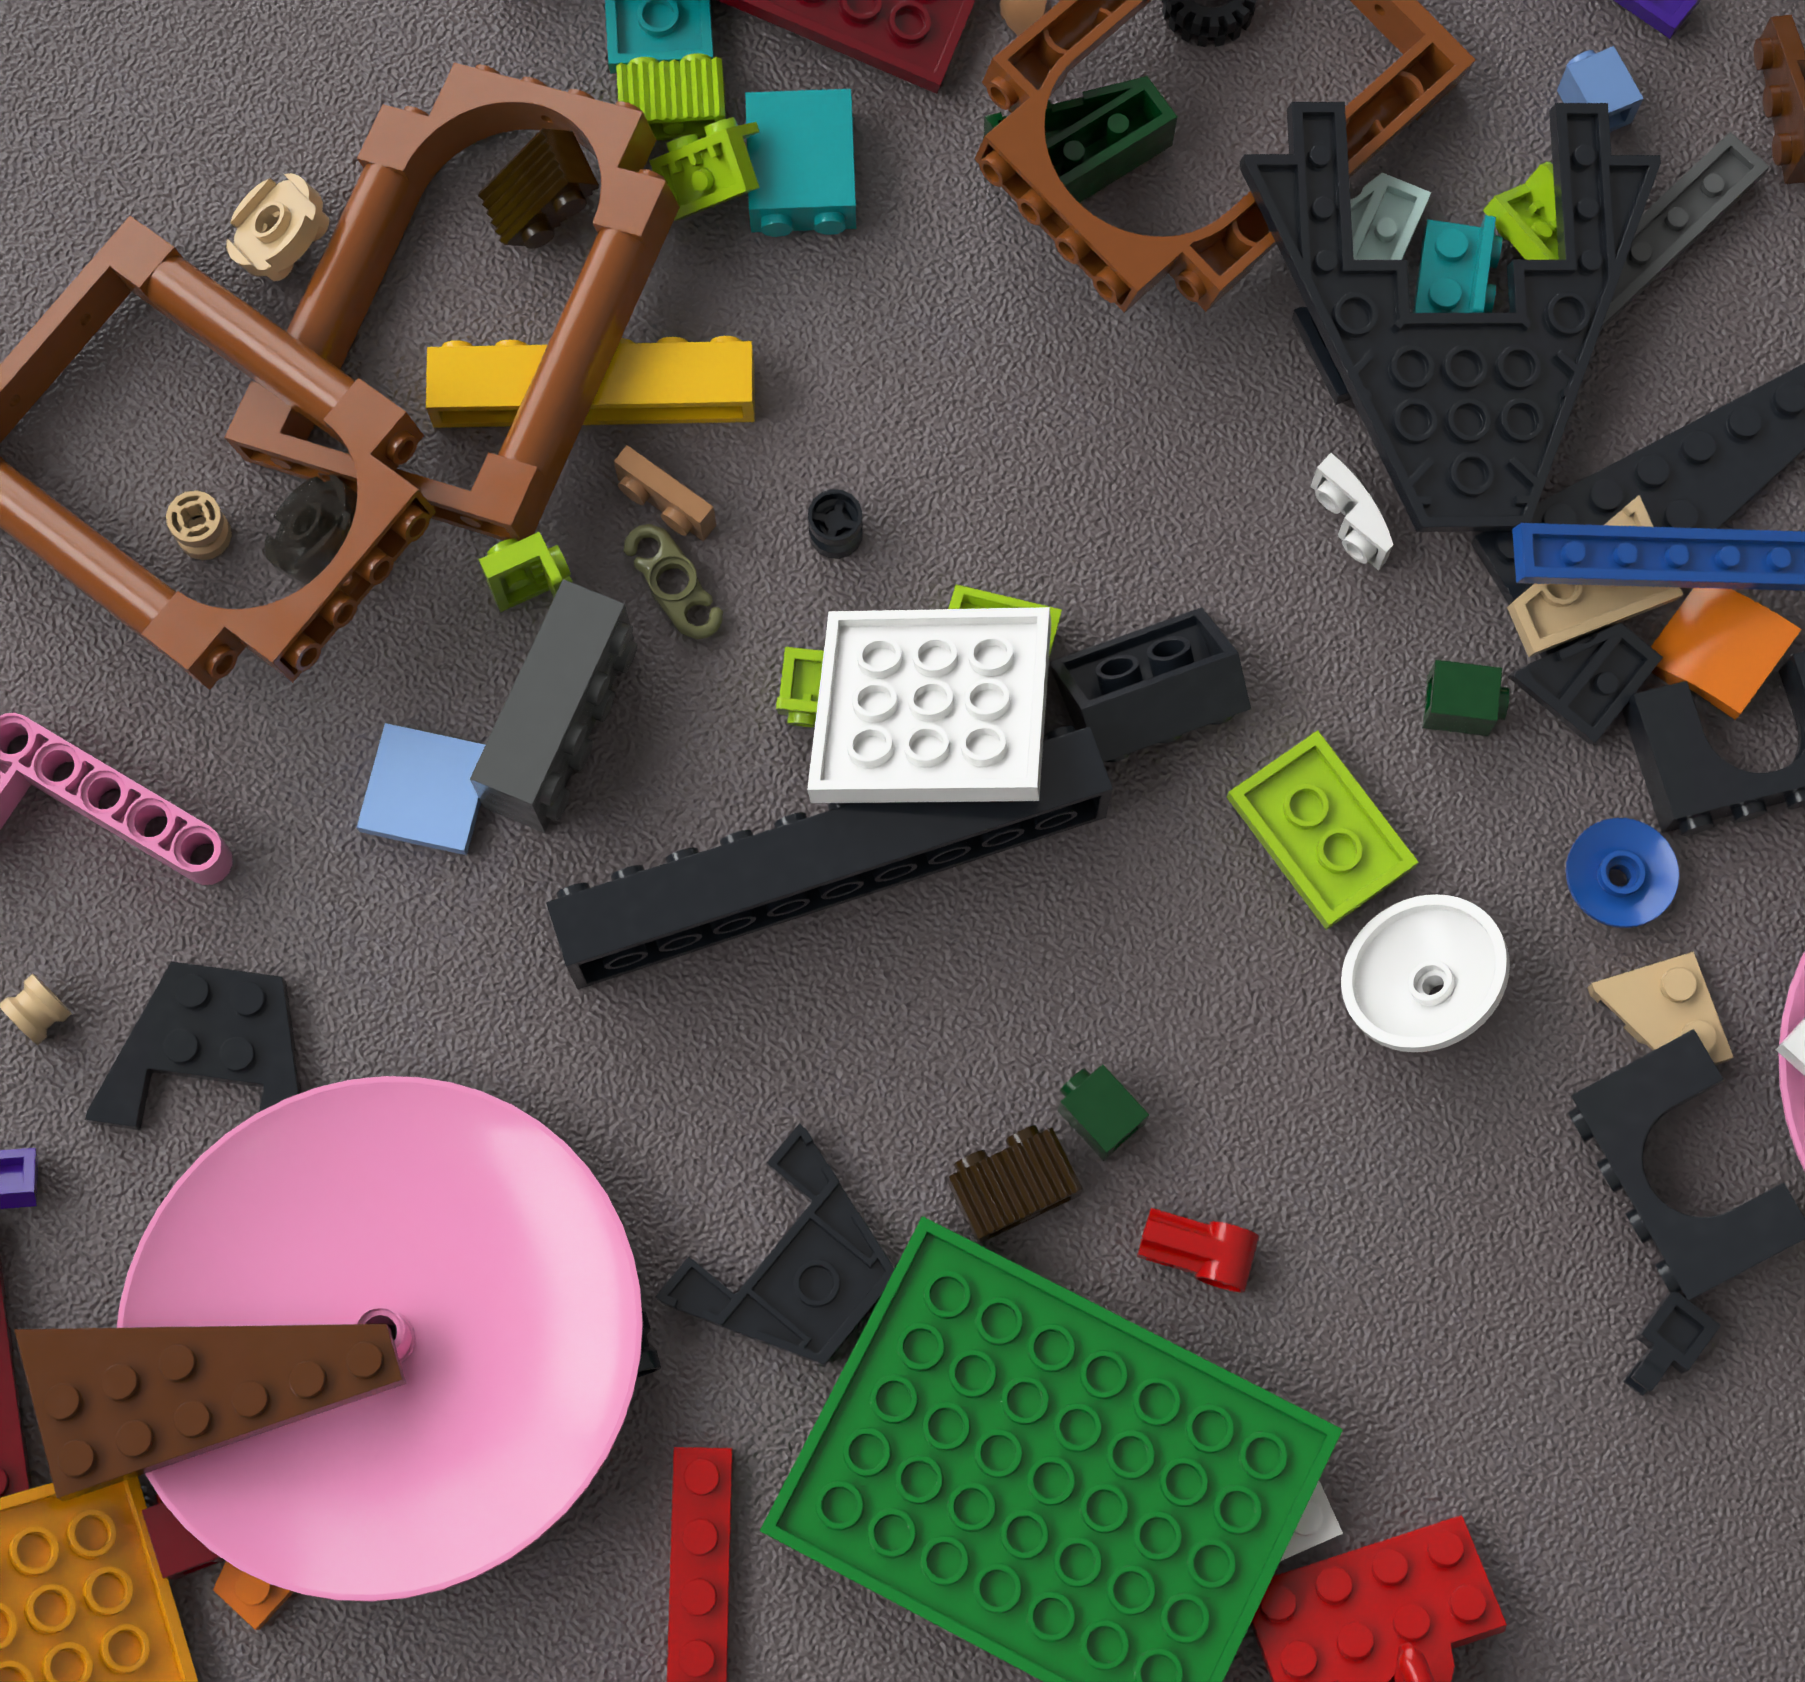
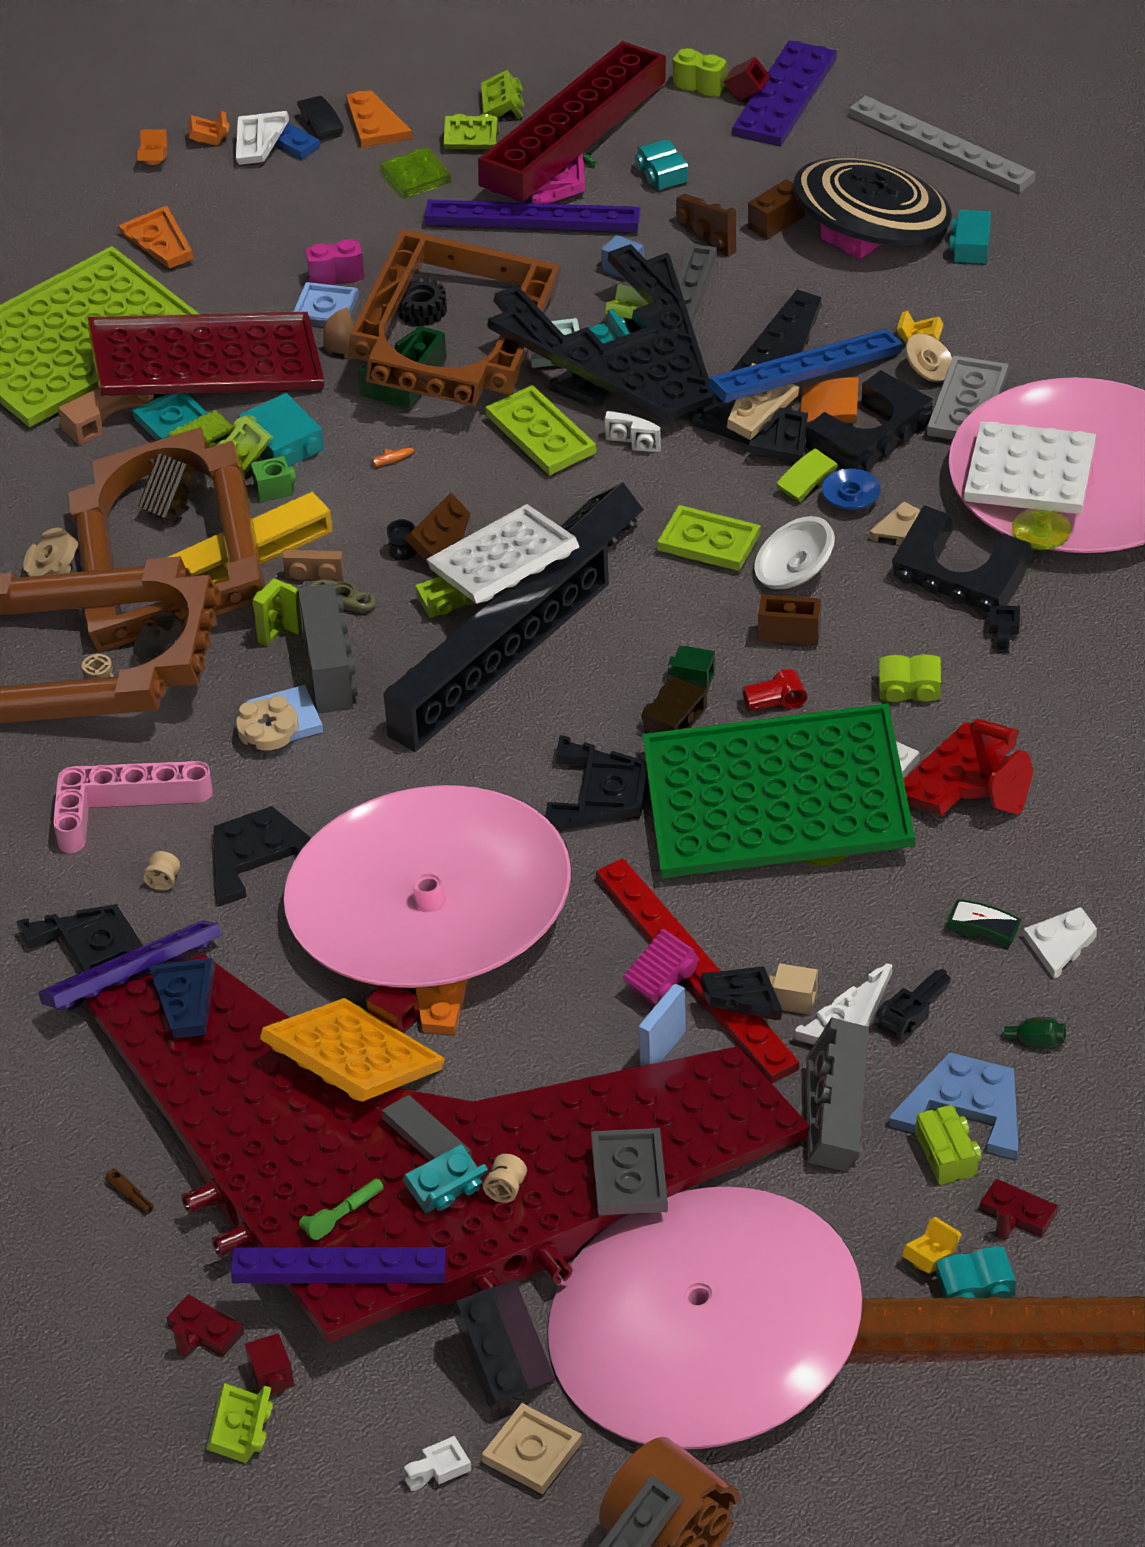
camera: 30 degrees left, 30 degrees down
(160, 1395) = (345, 948): reddish brown wing -> none
(363, 773) = (274, 710): none -> tan plate
(715, 238) = (273, 478): none -> bright green brick
(904, 549) = (440, 528): none -> reddish brown wing
(946, 316) = (391, 456): none -> orange helmet
(1212, 410) = (541, 430): none -> lime plate
(1319, 1115) = (789, 619): none -> reddish brown brick
(1434, 1365) = (910, 678): none -> lime brick
(1464, 698) = (733, 467): dark green brick -> none
(1573, 790) = (805, 474): none -> lime slope

